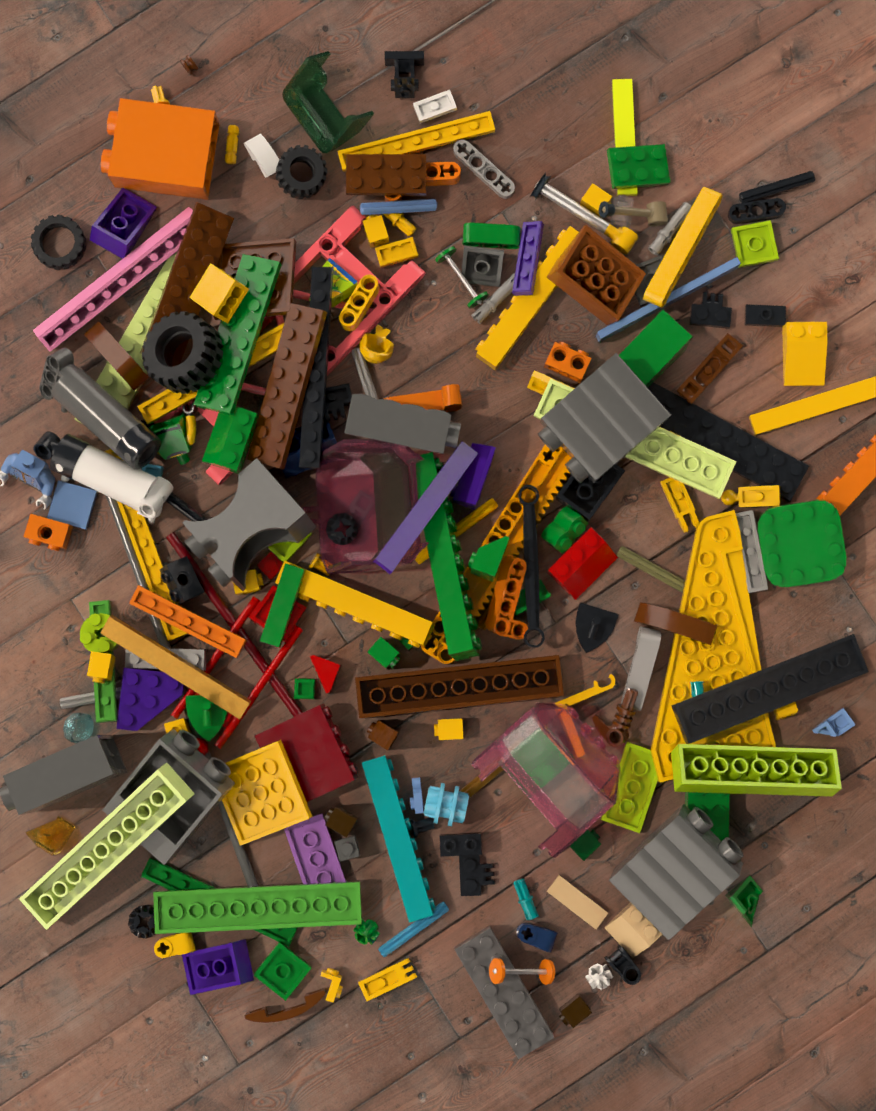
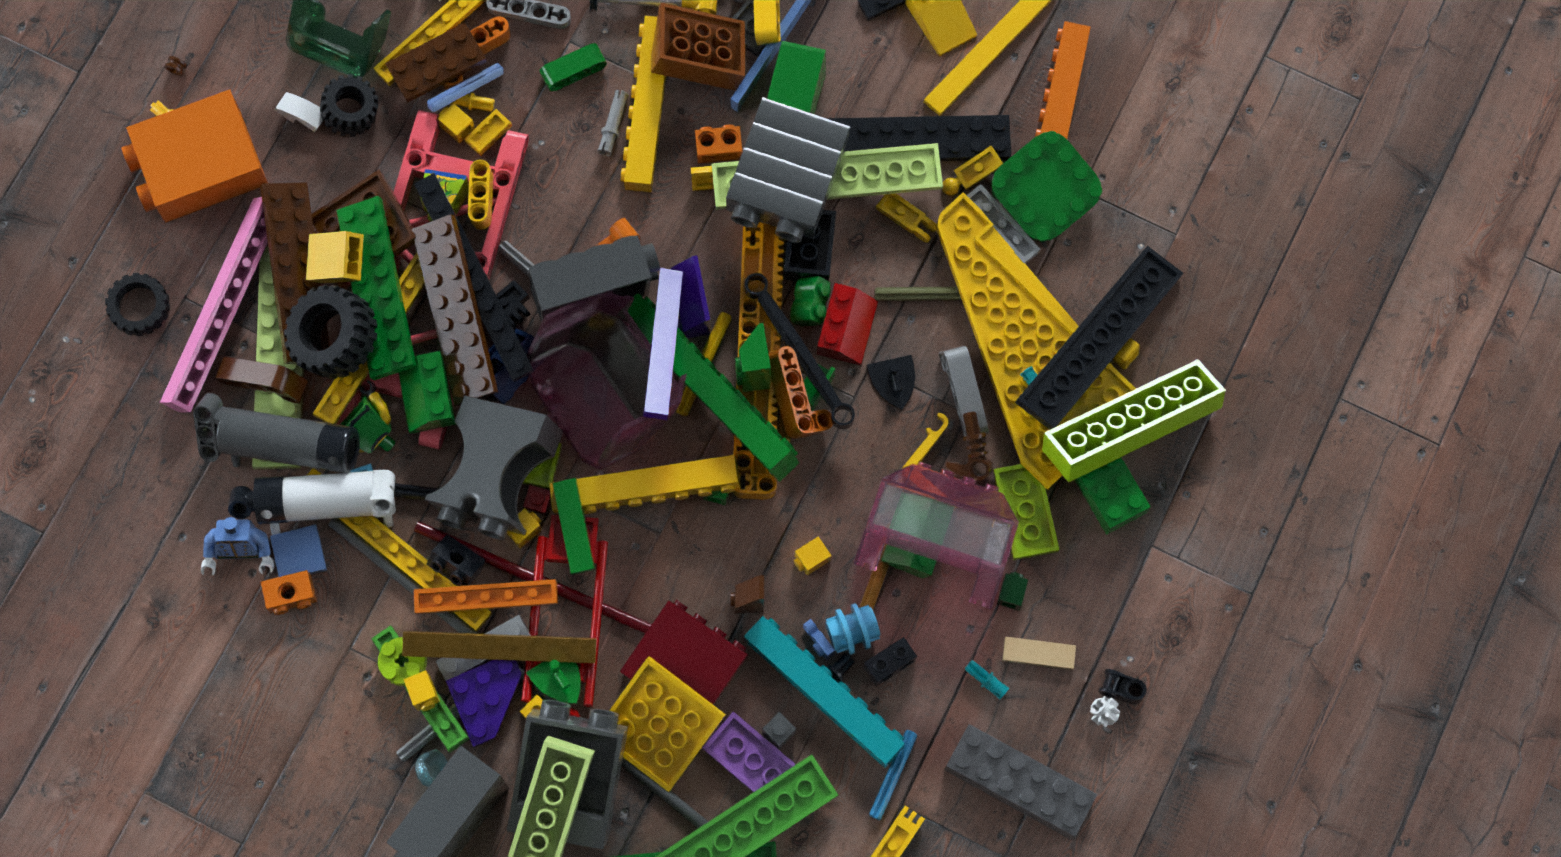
camera: 35 degrees left, 10 degrees down
(122, 223) = (193, 251): dark purple slope -> none
(231, 145) = (262, 118): yellow axle -> none
(304, 688) = (642, 601): green tile -> none
(318, 564) = (586, 470): yellow piece -> none
(326, 671) = (654, 569): red slope -> none
(338, 537) = (589, 431): black gear -> none
(340, 820) = (756, 704): dark brown brick -> none
(366, 932) = (847, 803): green gear -> none
(376, 346) = (521, 231): yellow hat -> none
(384, 653) = (703, 517): green brick -> none
(446, 255) = (539, 108): axle -> none
(459, 686) = (796, 508): reddish brown brick -> none
(473, 875) = (920, 686): black hinge -> none
(482, 265) = (580, 99): dark grey slope -> none
(497, 971) = (1003, 758): orange axle -> none
(528, 258) = (622, 68): dark purple tile -> none
(540, 937) = (1024, 708): dark blue piece -> none
(574, 1011) = (1101, 760): dark brown brick -> none
(632, 930) = (1110, 644): tan slope -> none
(676, 623) = (971, 327): reddish brown slope -> none
(678, 870) = (1118, 557): dark grey brick -> none
(709, 368) = (859, 76): reddish brown slope -> none
(711, 313) = (829, 26): black hinge -> none
(745, 898) = (1199, 555): green slope -> none
(835, 724) = (1183, 340): medium blue slope -> none

